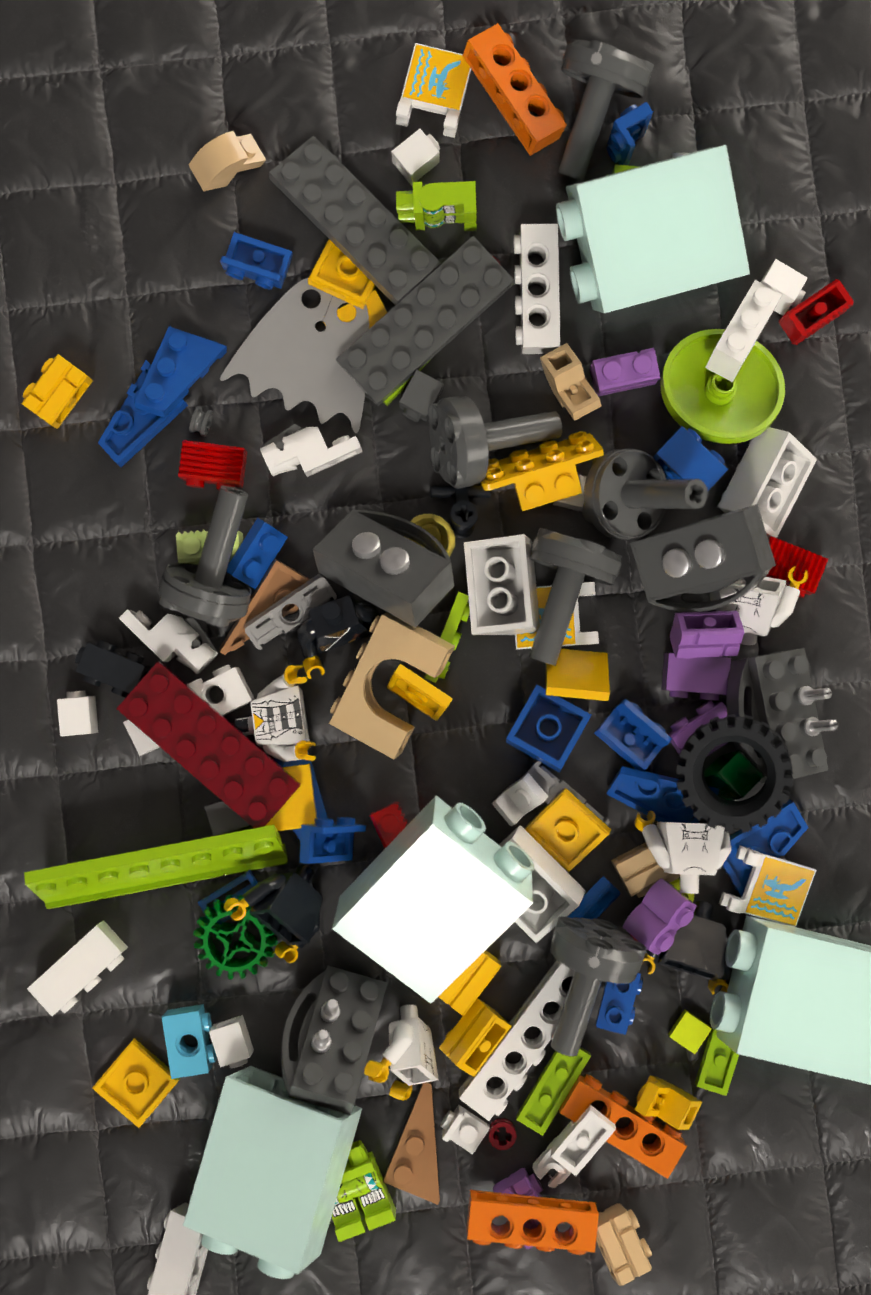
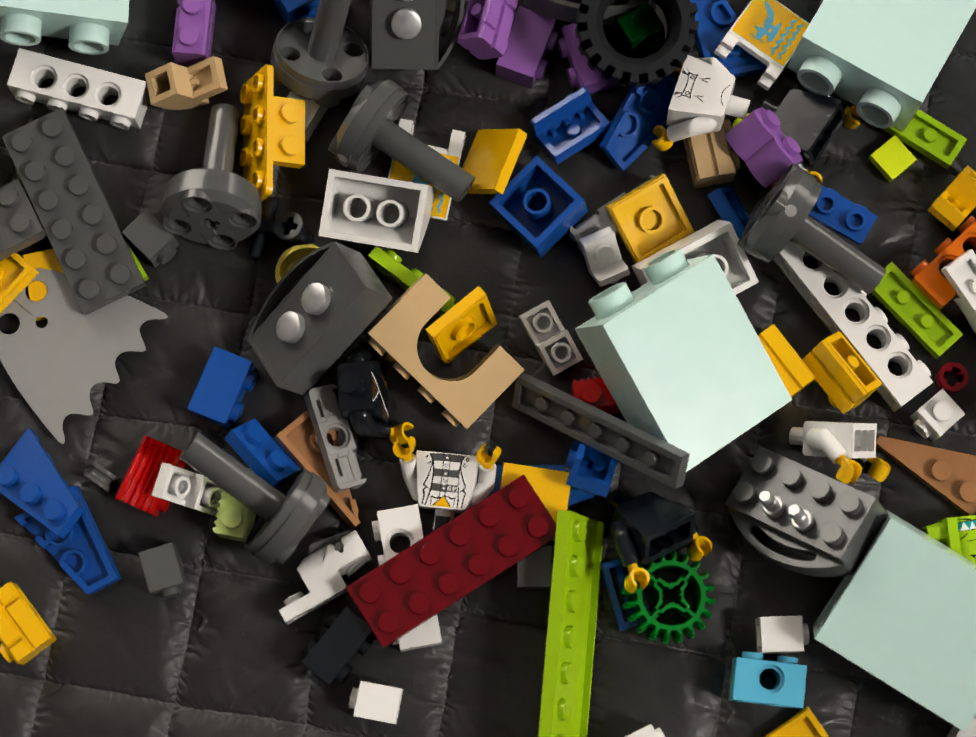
camera: 75 degrees left, 10 degrees down
(136, 501) = (163, 570): none -> dark grey brick
(205, 490) = (187, 489): none -> white slope
(306, 448) = (167, 372): white plate -> none
(306, 501) = (223, 388): none -> blue brick
(353, 844) = (601, 431): none -> dark grey plate
(436, 771) = (550, 337): none -> white slope

